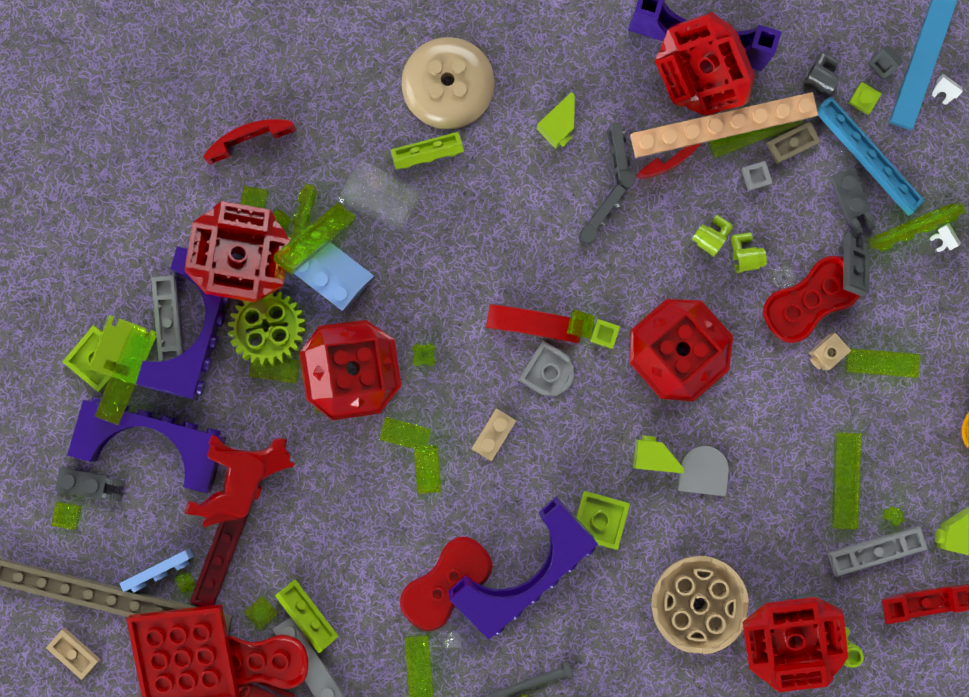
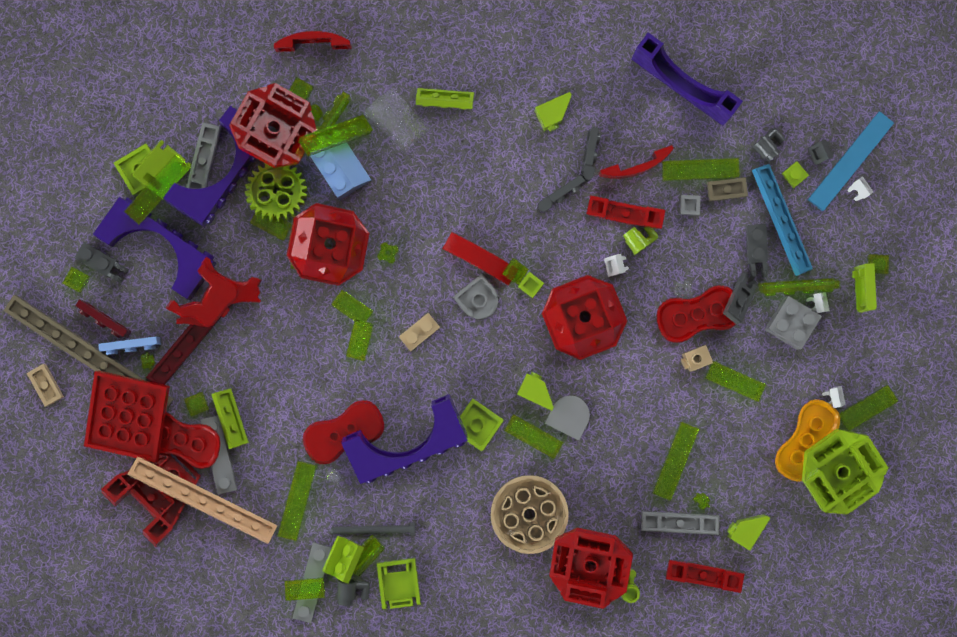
camera: 25 degrees right, 0 degrees up
(114, 551) = (102, 319): none -> dark red plate
(454, 104) = (475, 70): tan brick -> none
(670, 510) = (533, 436): none -> clear neon green plate
(686, 211) = (626, 213): none -> red slope
(695, 276) = (615, 265): none -> white tile
(705, 65) = (677, 107): red piece -> none
(723, 125) = (677, 157): light nougat plate -> none
(748, 258) = (660, 265): lime piece -> none
(925, 271) = (793, 322): none -> light grey brick

